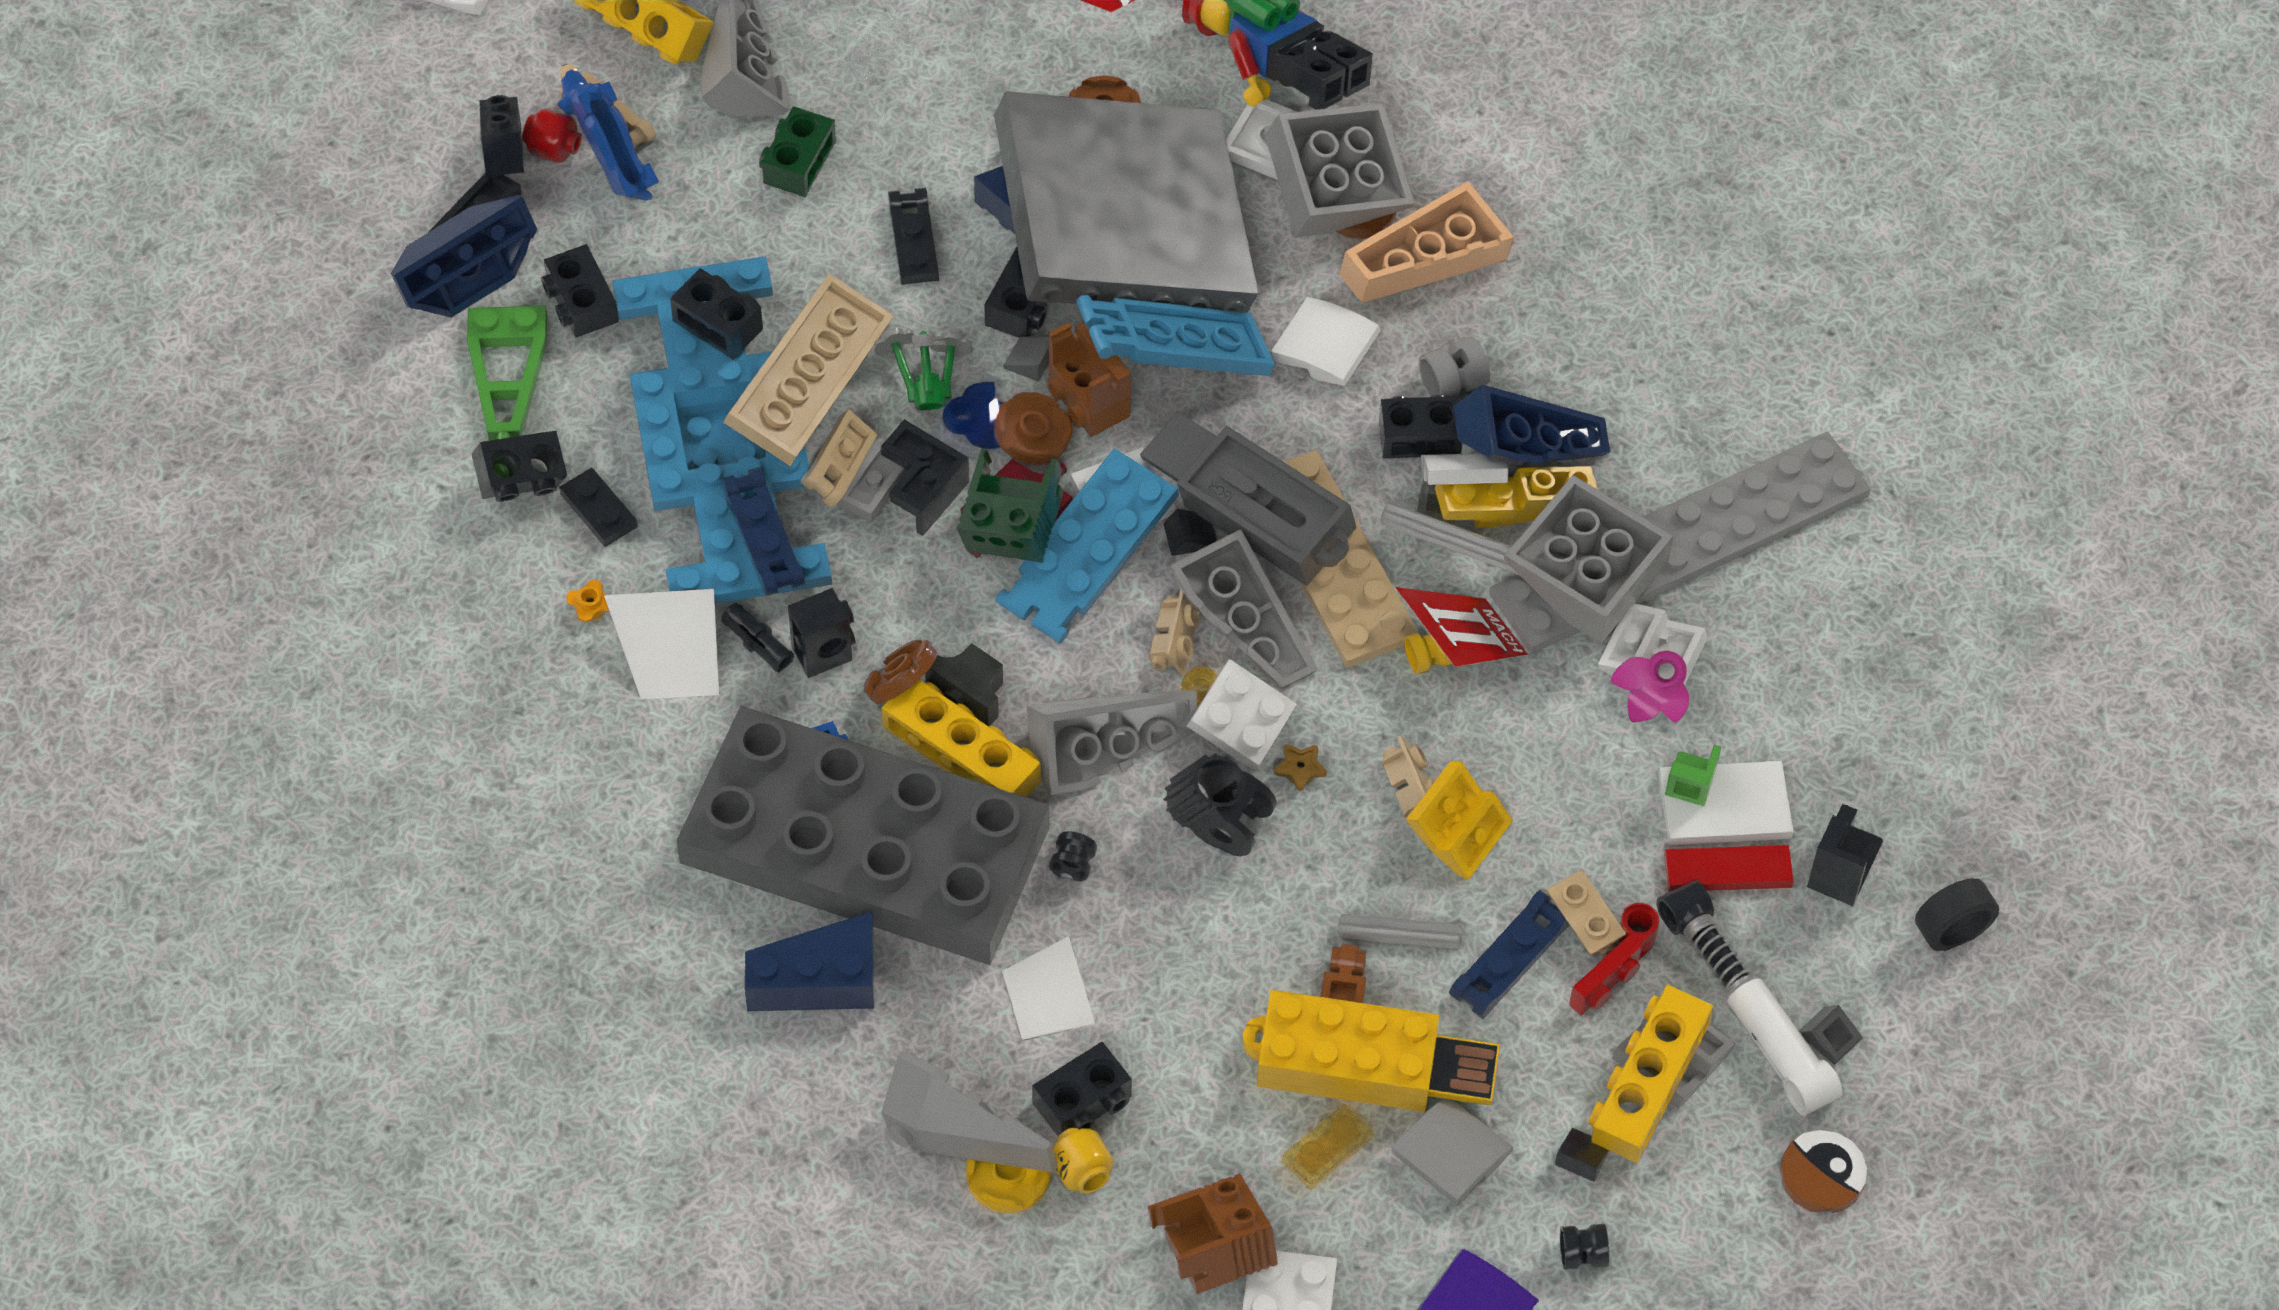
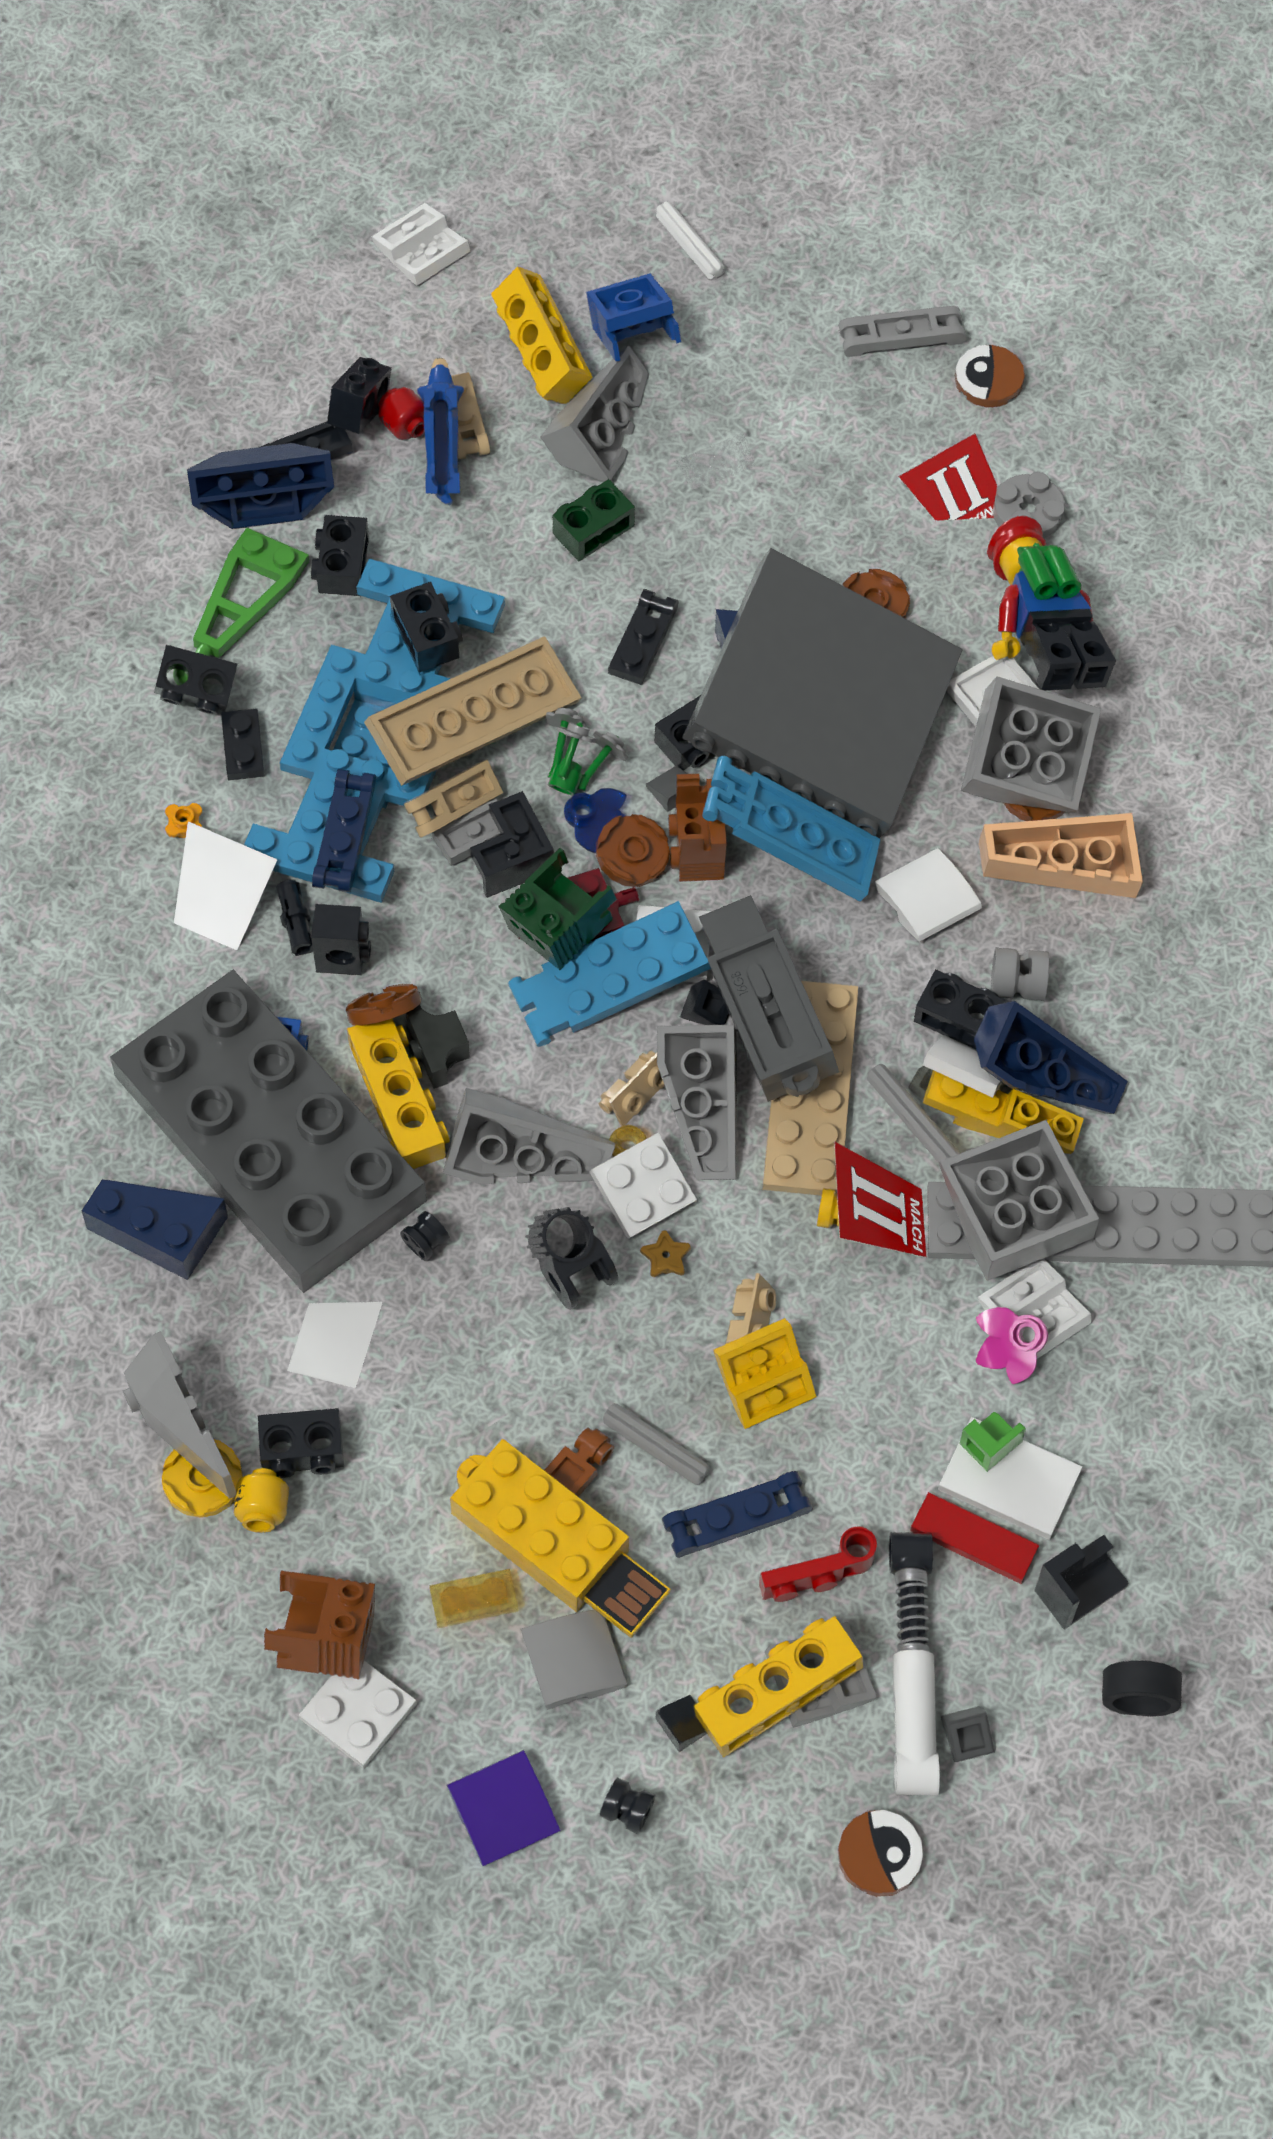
camera: 30 degrees right, 5 degrees up
(1587, 913) = (818, 1513): tan hinge -> none

